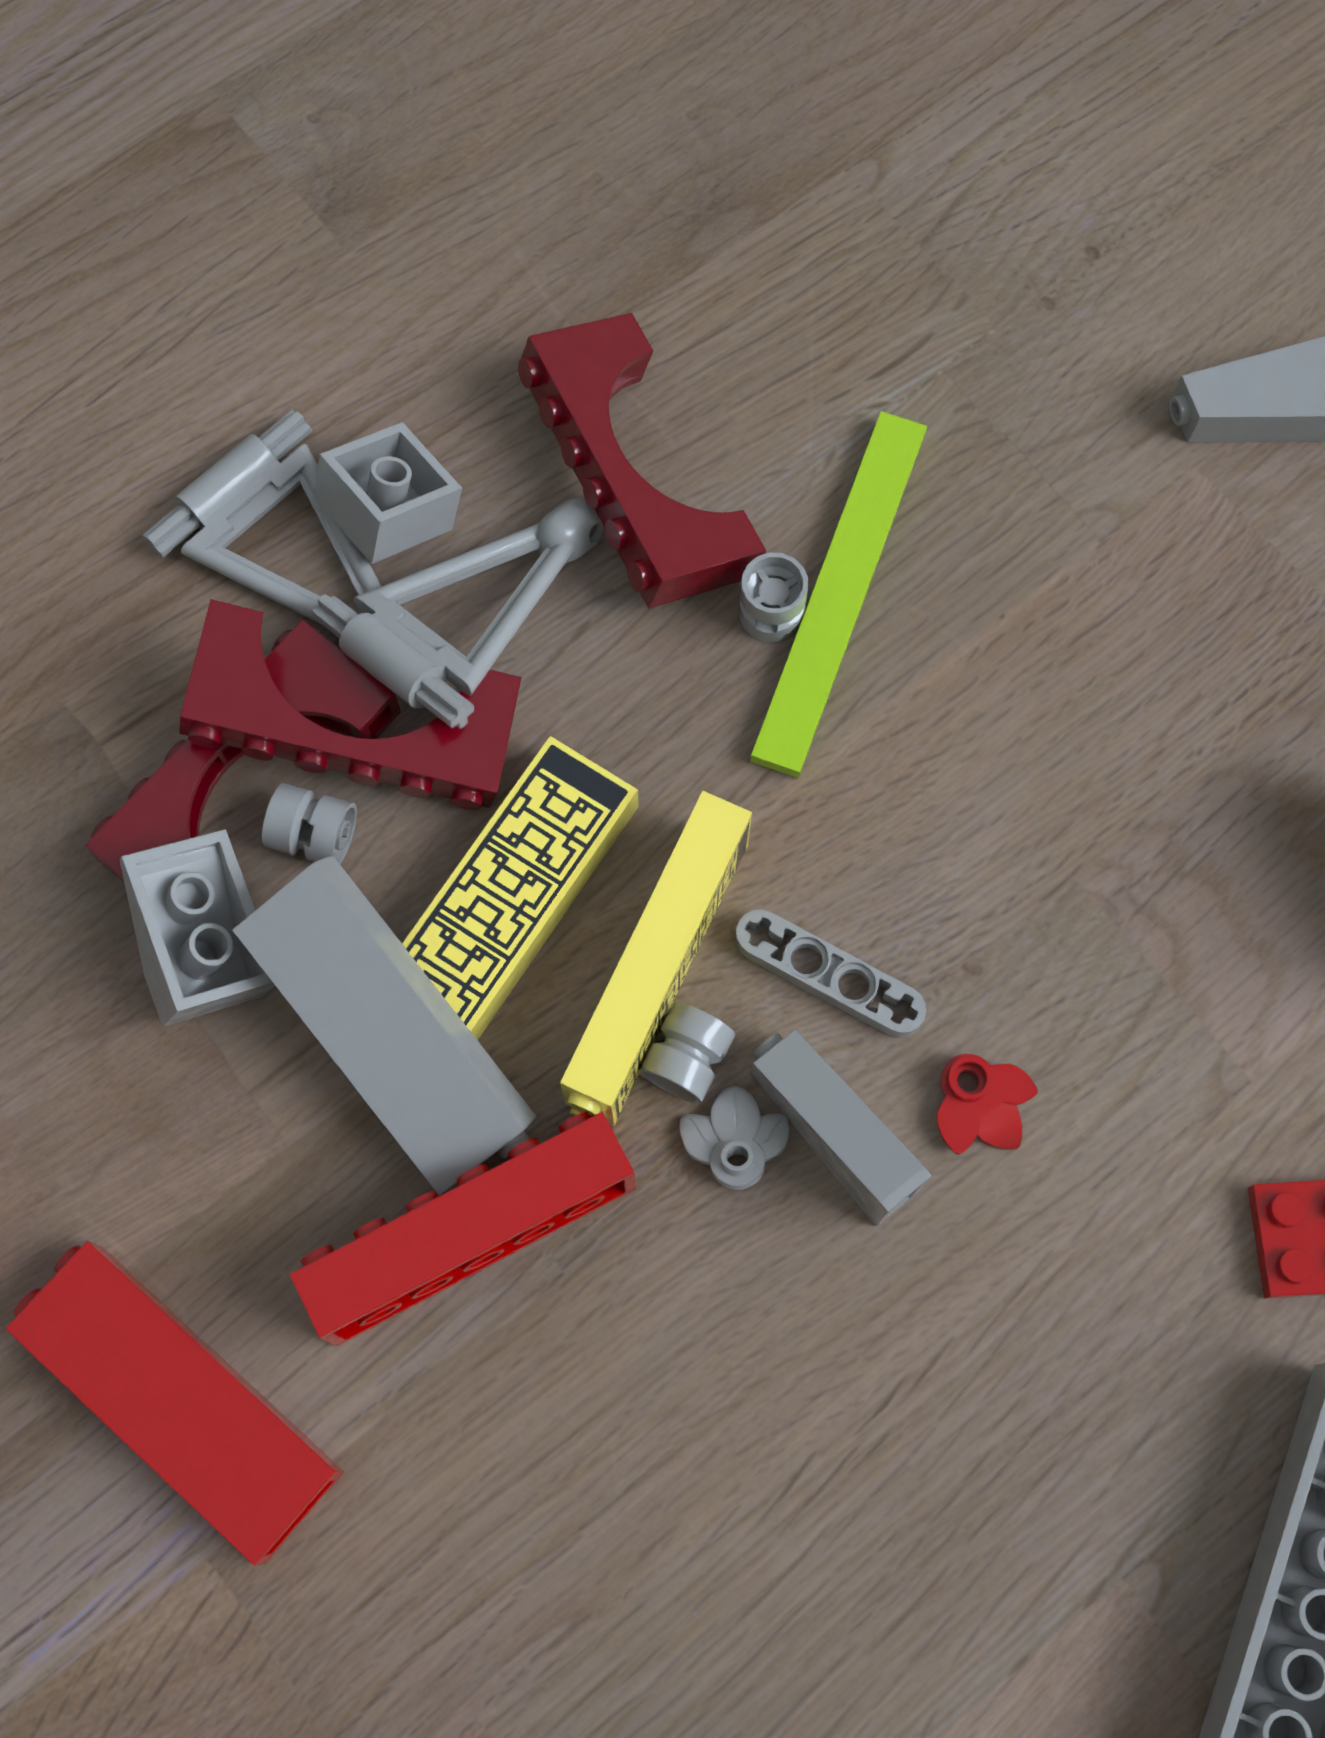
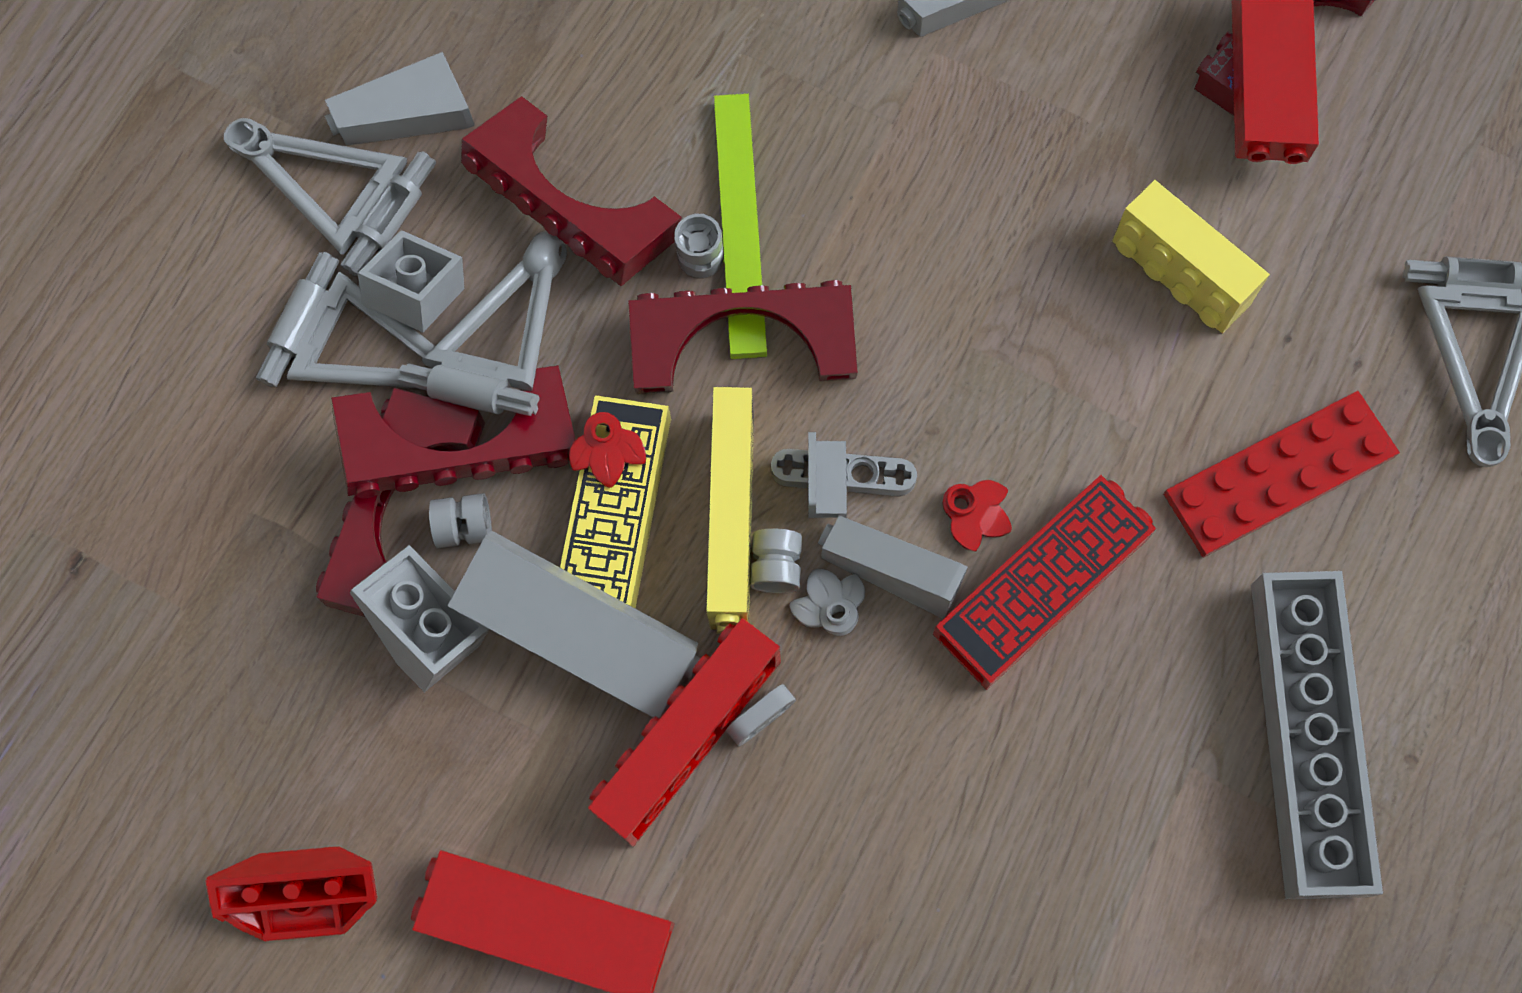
camera: 20 degrees left, 0 degrees up
(387, 386) = (376, 211): none -> light grey piece
(478, 264) = (401, 105): none -> light grey slope
(531, 820) = (606, 454): none -> red plate
(576, 1248) = (760, 715): none -> light grey beam
(682, 684) = (816, 314): none -> dark red arch
(801, 972) = (826, 478): none -> light grey panel
(1033, 1235) = (1044, 581): none -> red brick

